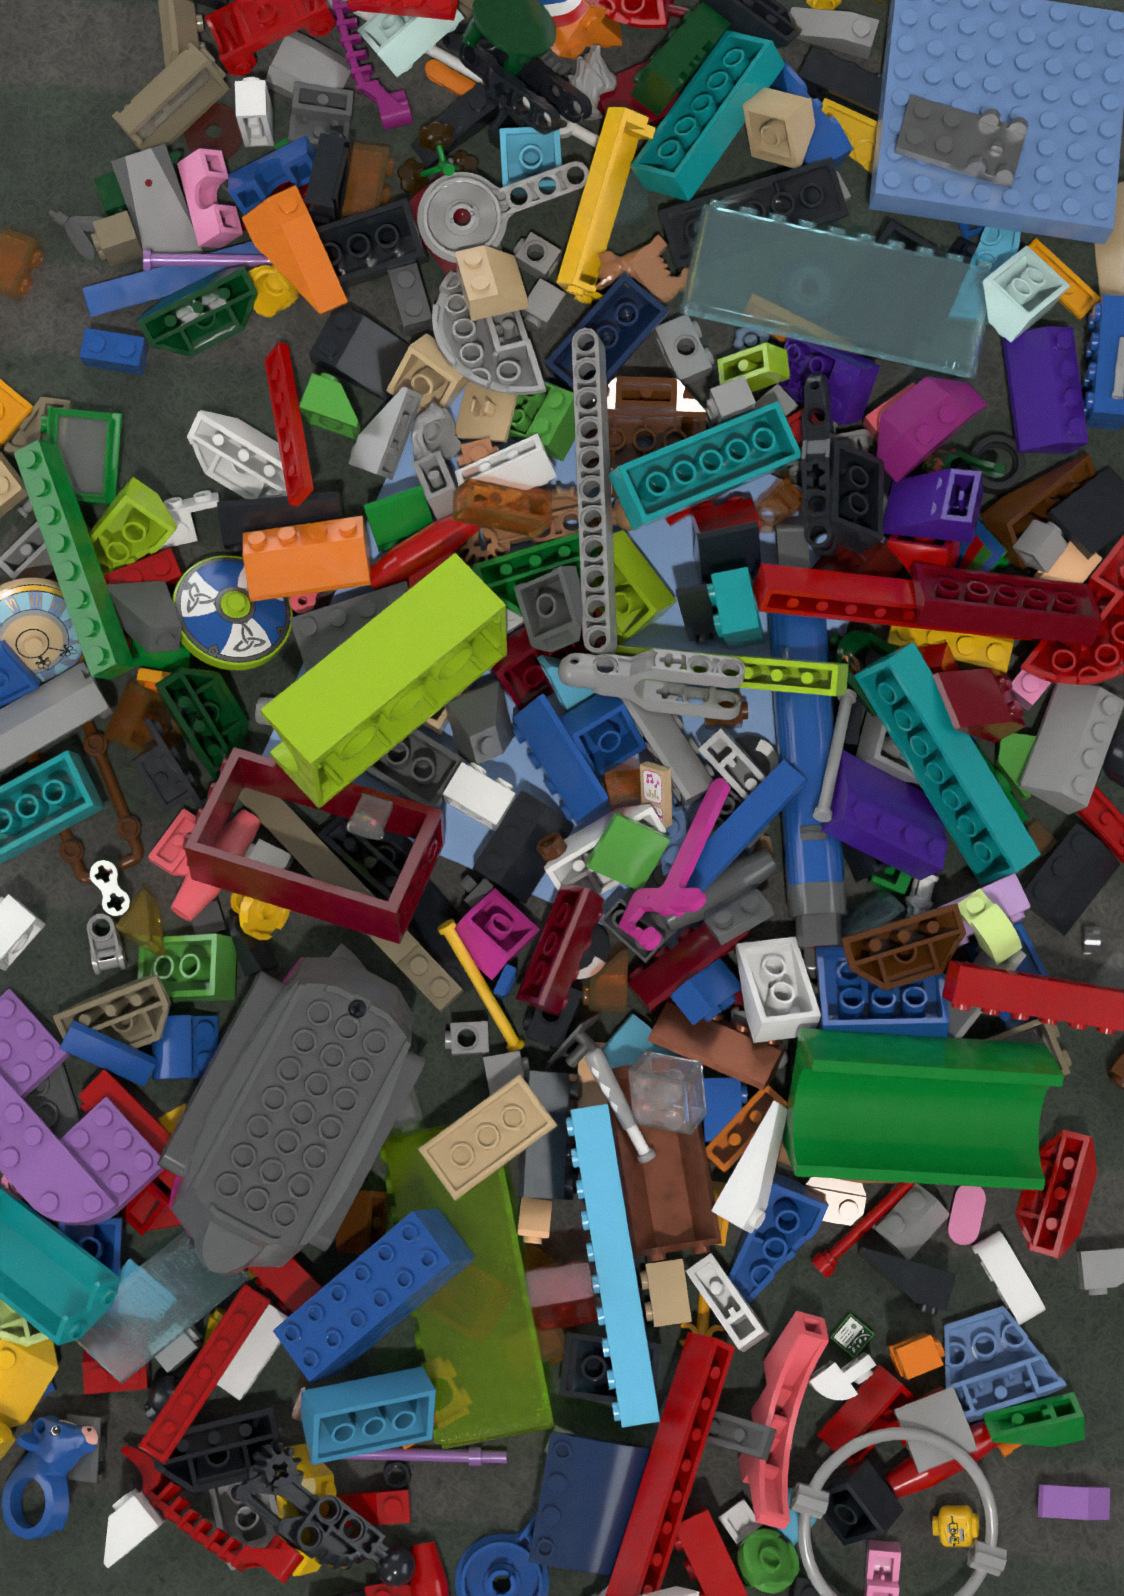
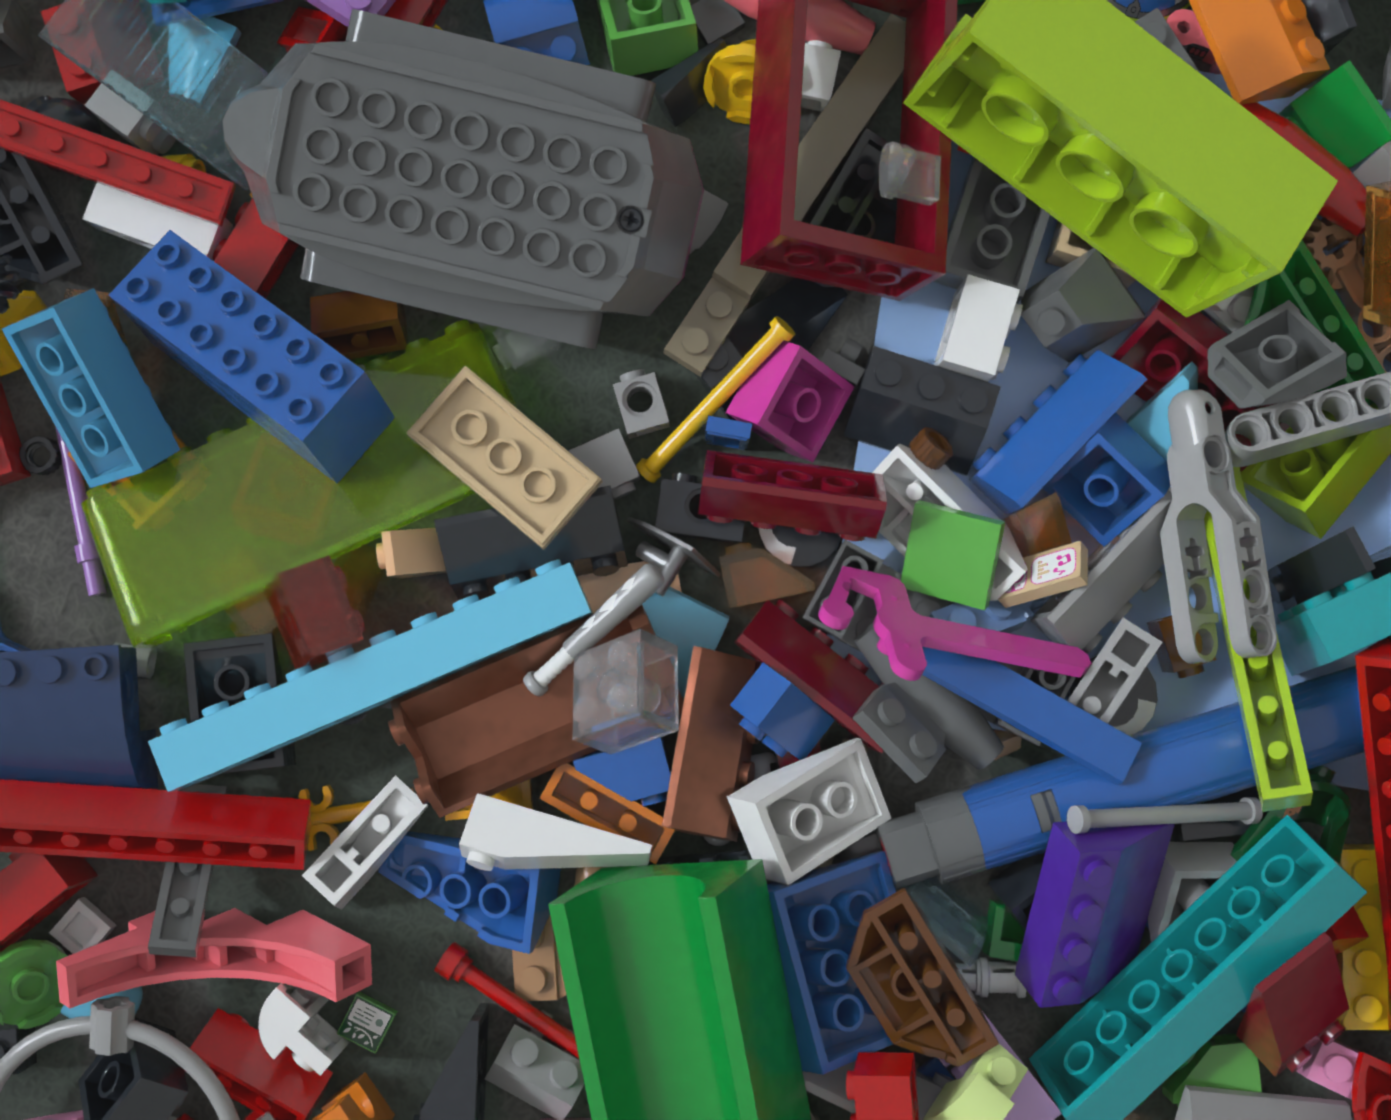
camera: 75 degrees right, 5 degrees up
(667, 1293) = (360, 758): tan brick -> none

